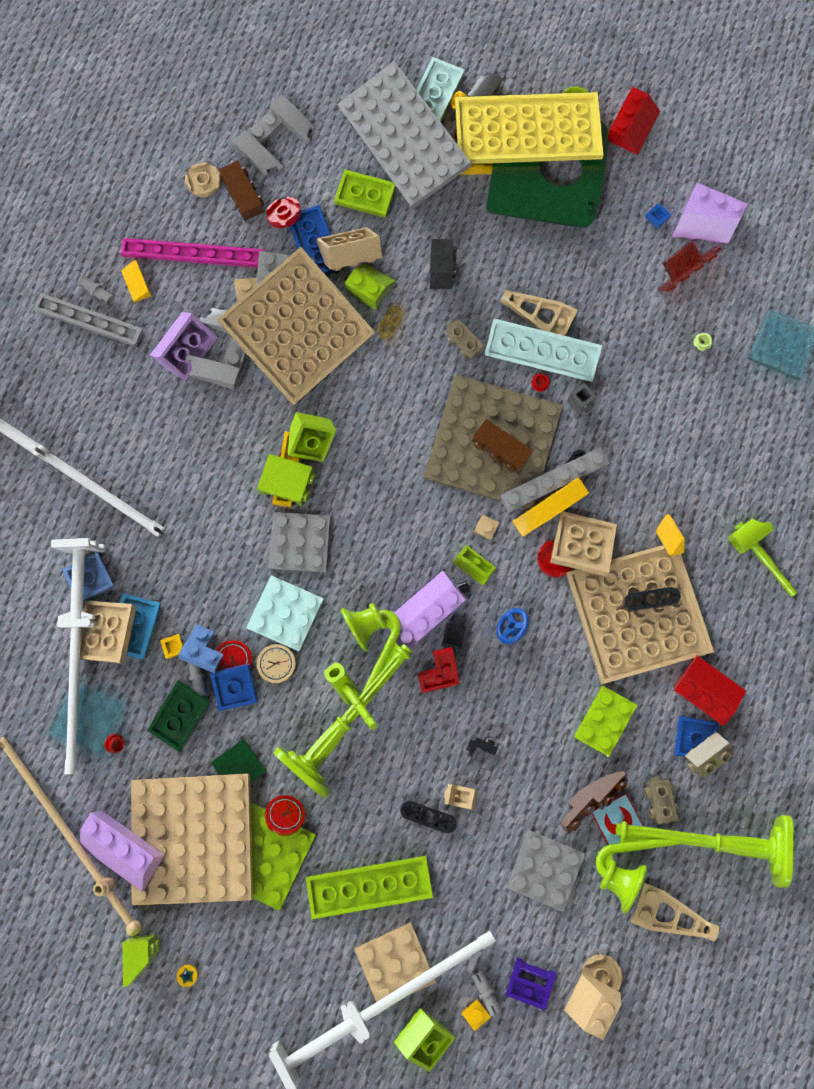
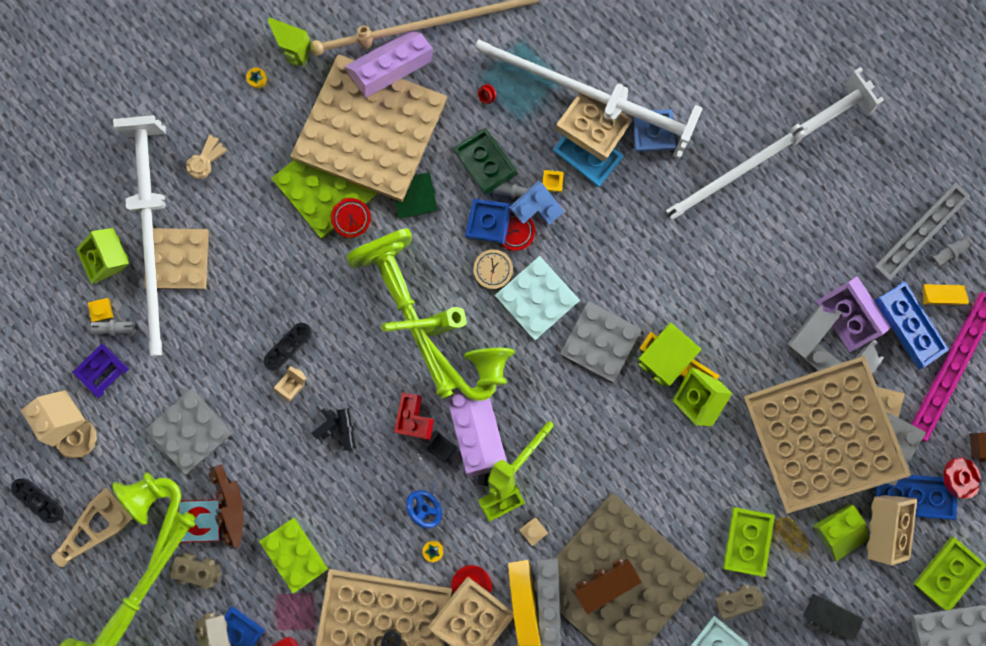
camera: 115 degrees right, 5 degrees up
(173, 297) = (911, 325): none -> tile
(297, 987) = (200, 165): none -> tan piece
(368, 887) = (252, 265): lime plate -> none
(412, 352) = (748, 541): none -> lime plate
(450, 569) = (503, 474): none -> lime piece
(476, 727) = (346, 429): none -> black pin
(543, 603) = (432, 551): none -> yellow tile
(650, 697) = (295, 611): none -> clear pink piece
(679, 989) = (29, 486): none -> black beam

